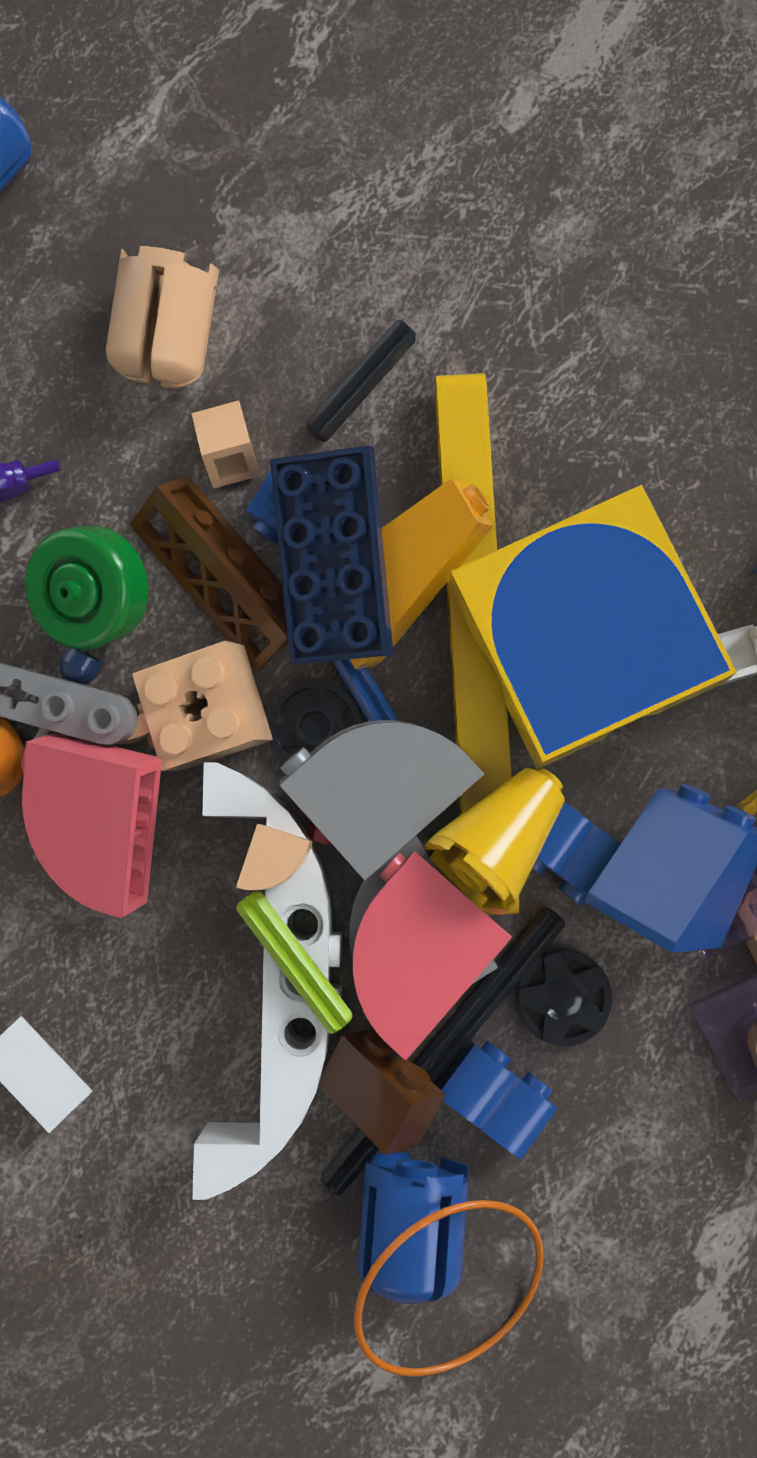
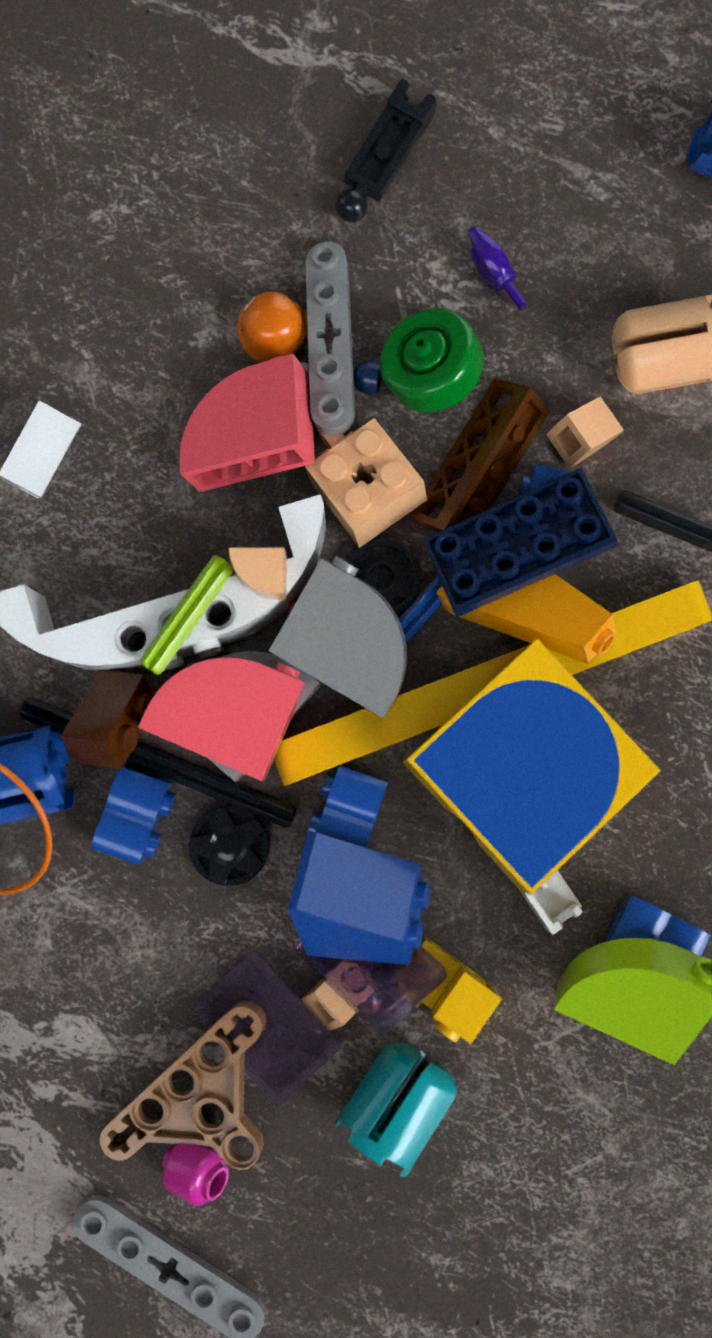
camera: 70 degrees right, 0 degrees up
(499, 838) = (337, 748): yellow cone -> none

